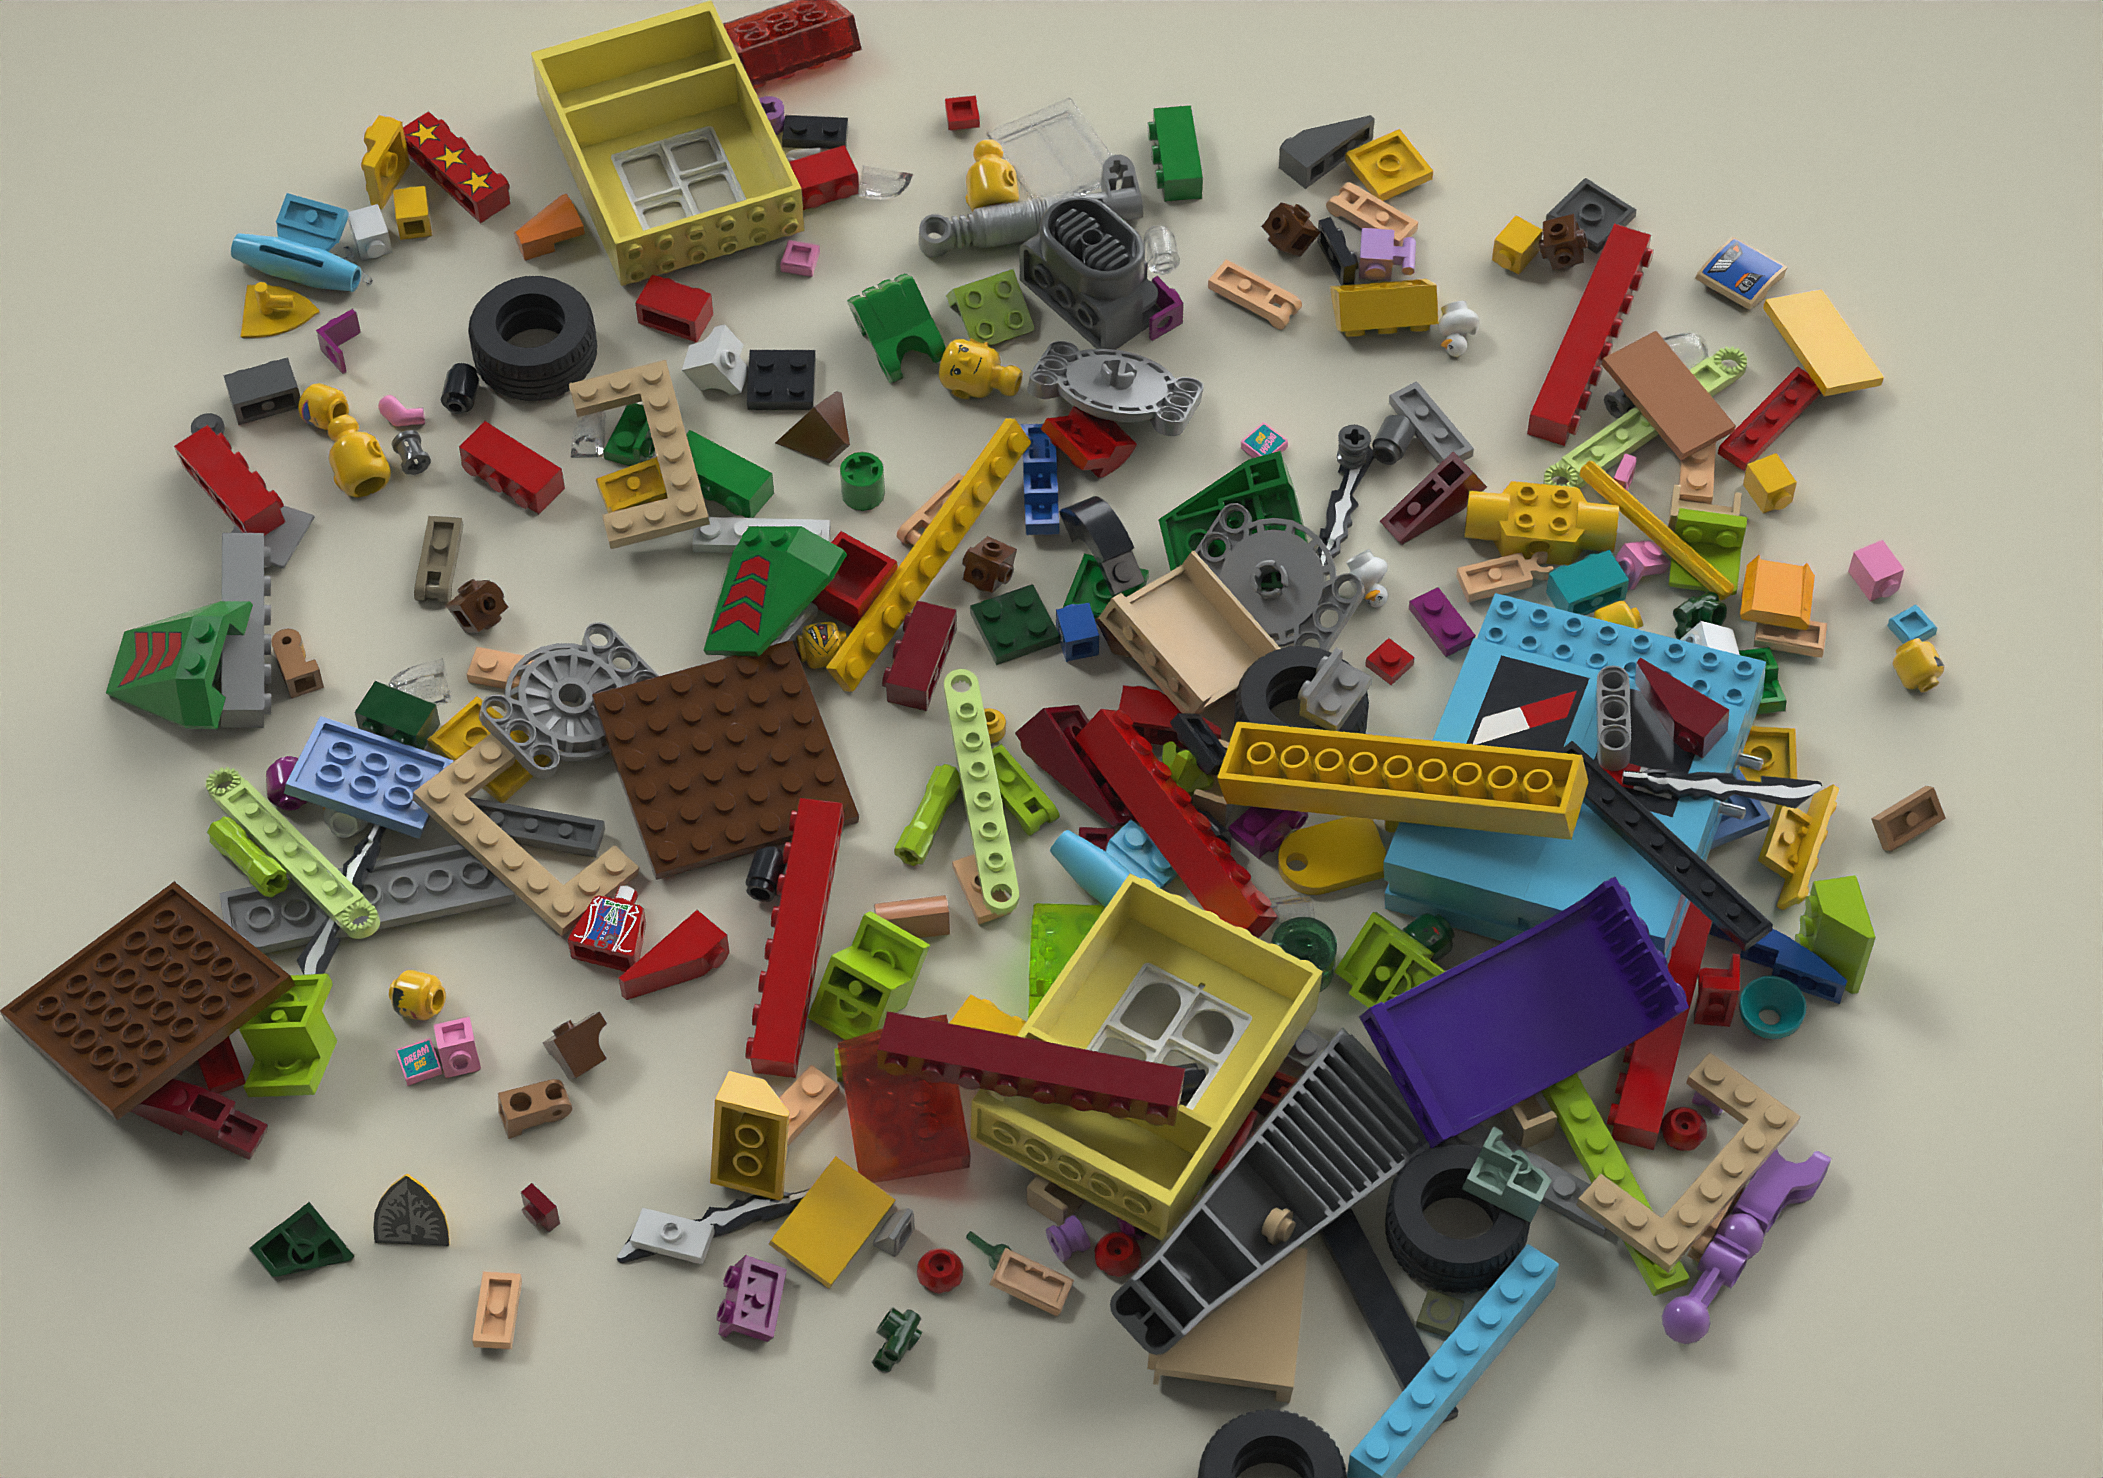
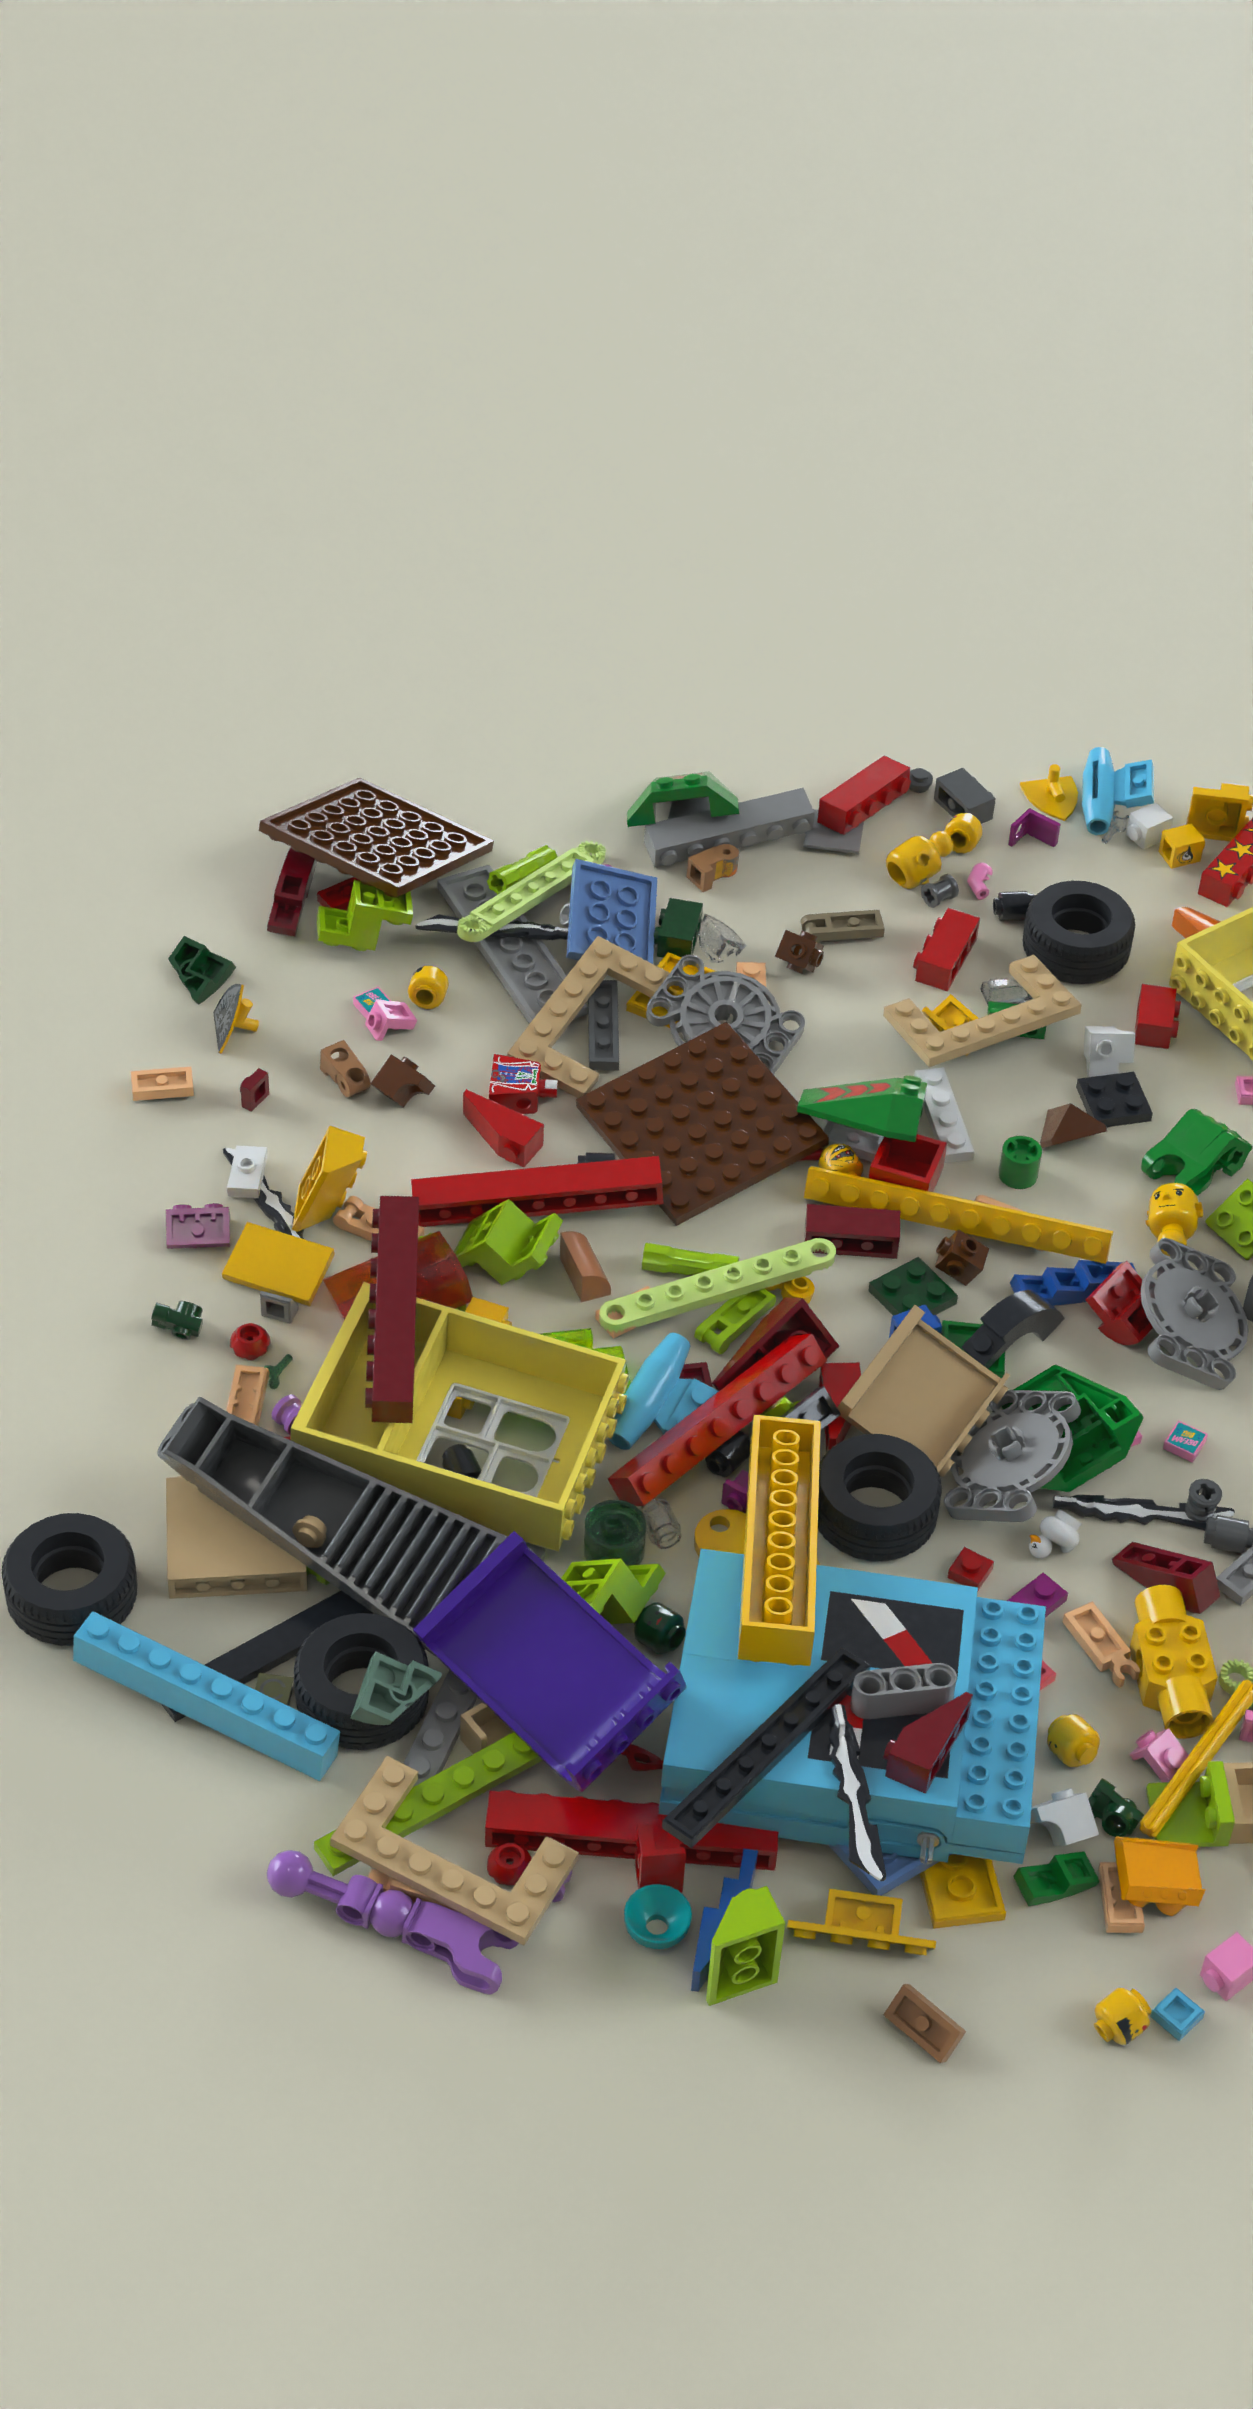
camera: 75 degrees right, 10 degrees down
(729, 477) = (989, 1077): green brick -> none
(1333, 692) = (884, 1493): light grey bracket -> none
(1587, 584) = (1113, 1711): teal brick -> none

